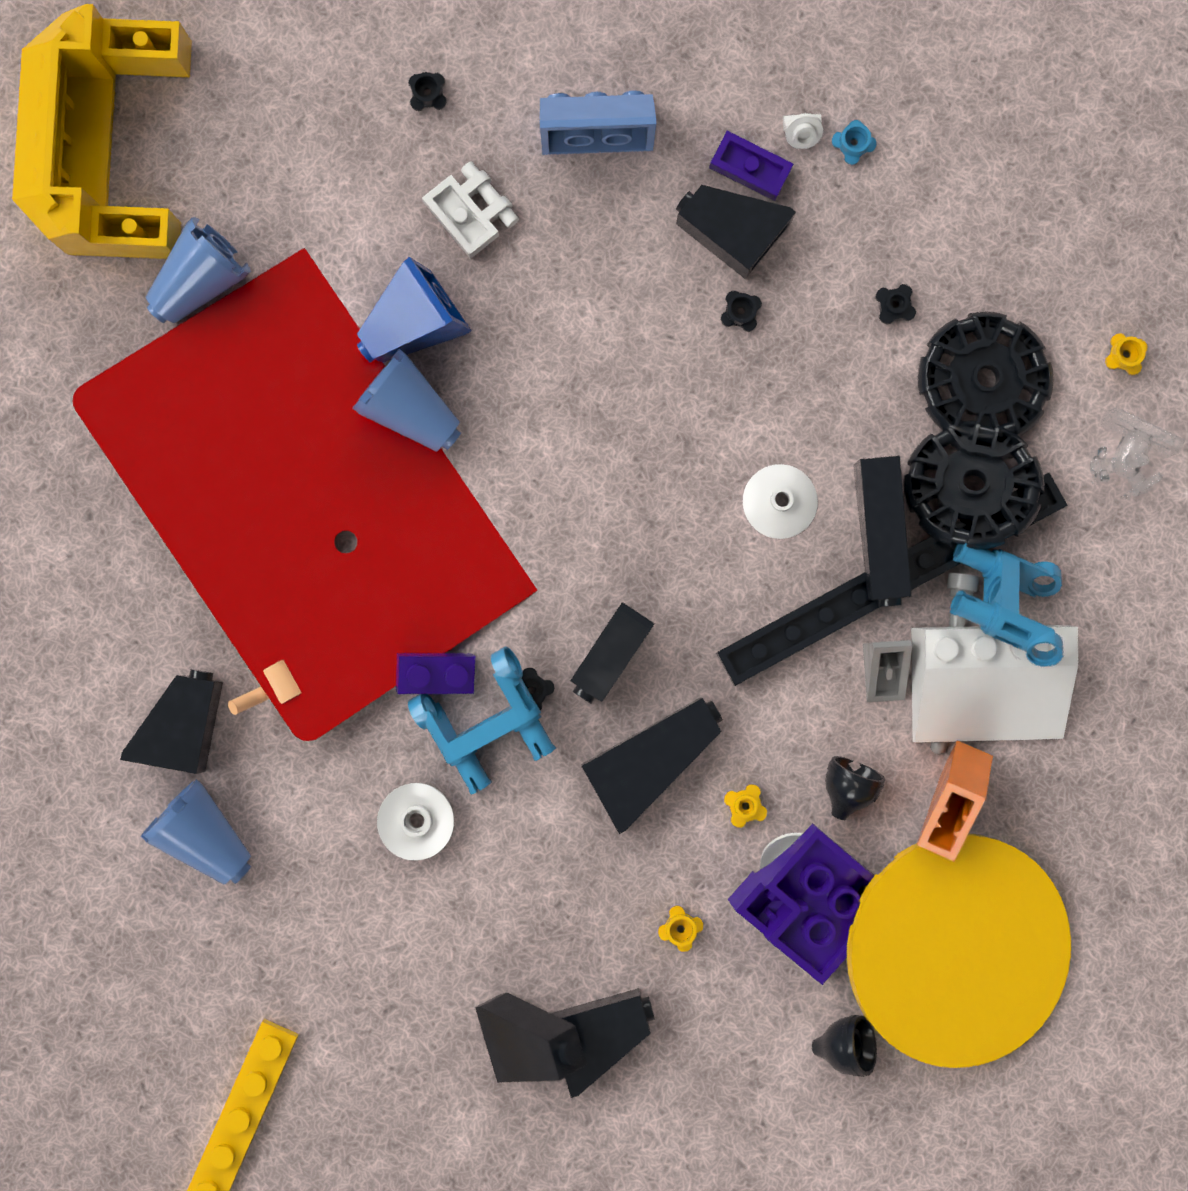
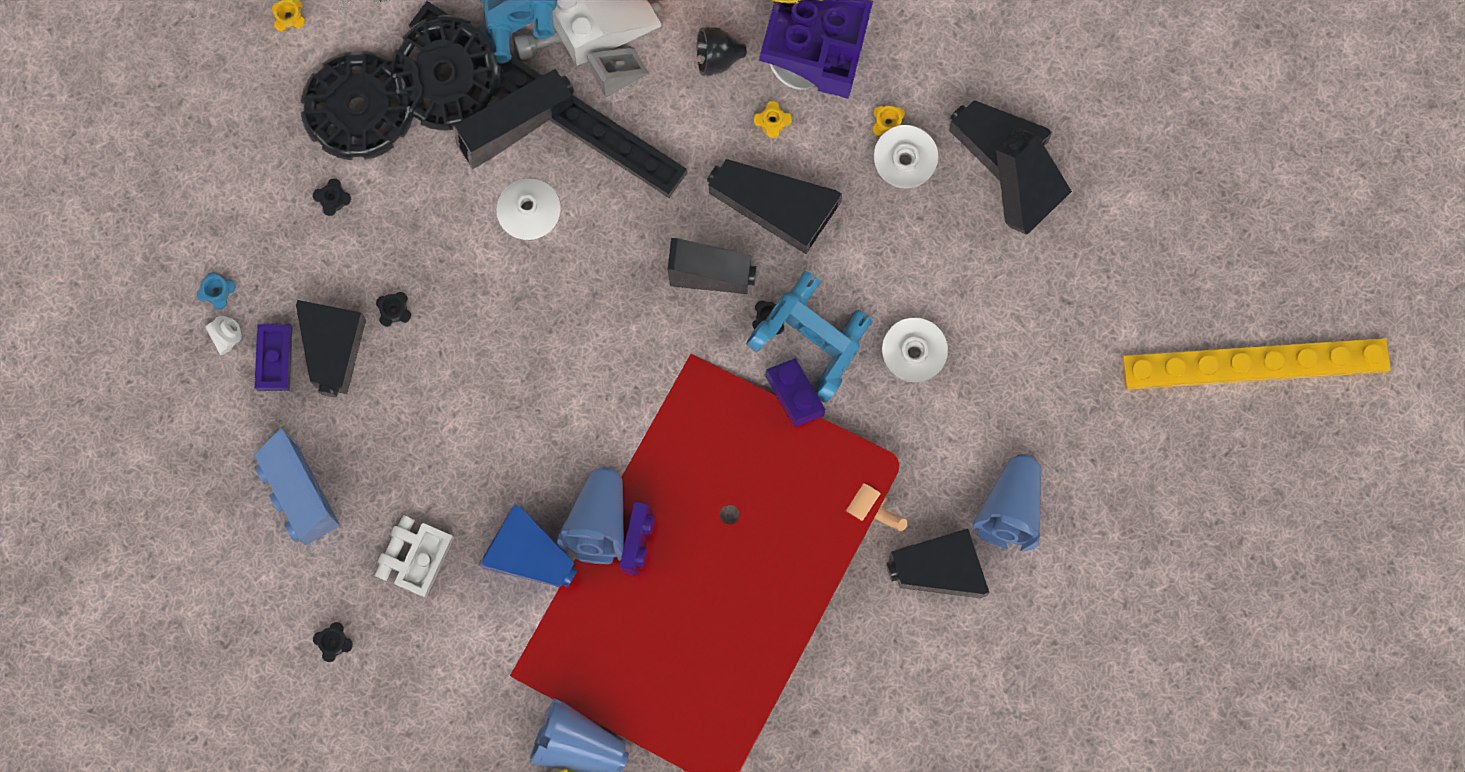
camera: 110 degrees left, 10 degrees down
(354, 425) = (640, 526): none -> dark purple plate
(624, 945) = (905, 141): none -> white dish

